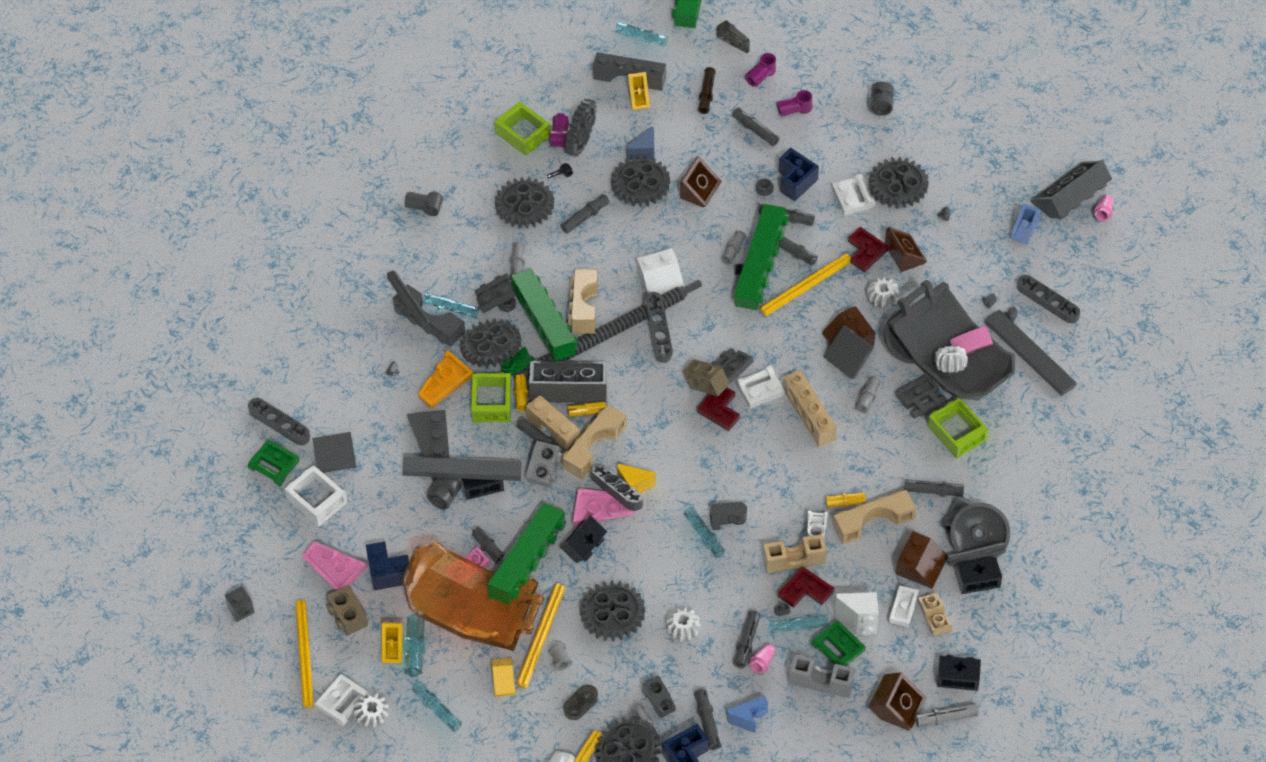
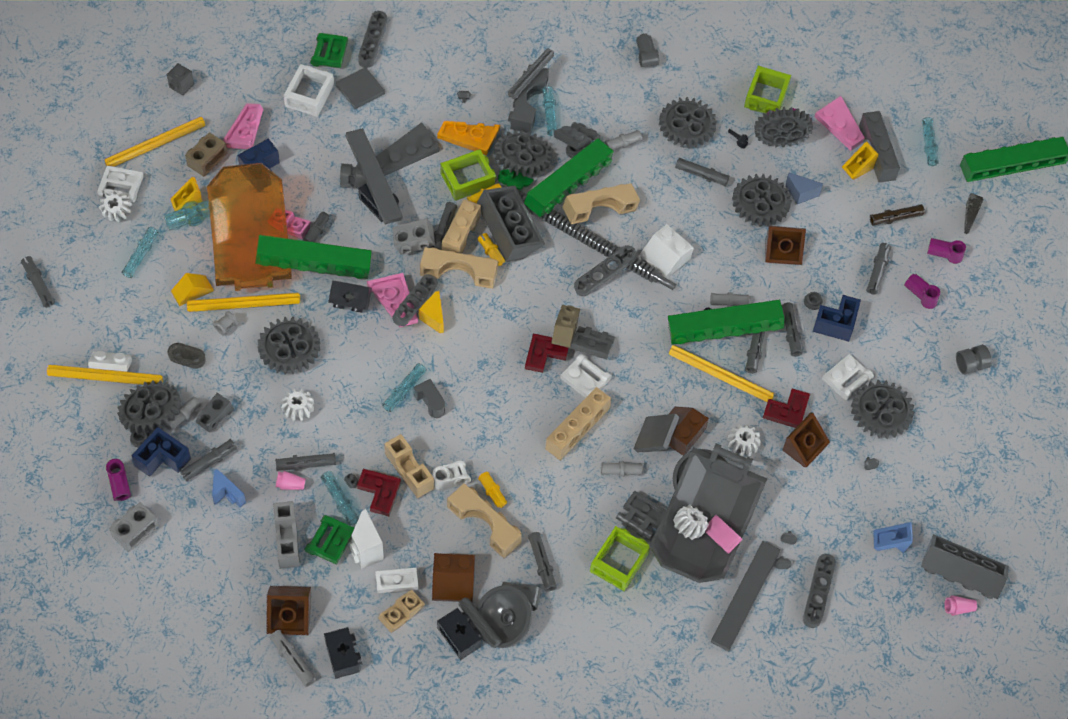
camera: 60 degrees right, 5 degrees up
(576, 89) = (840, 123): none -> bright pink wing

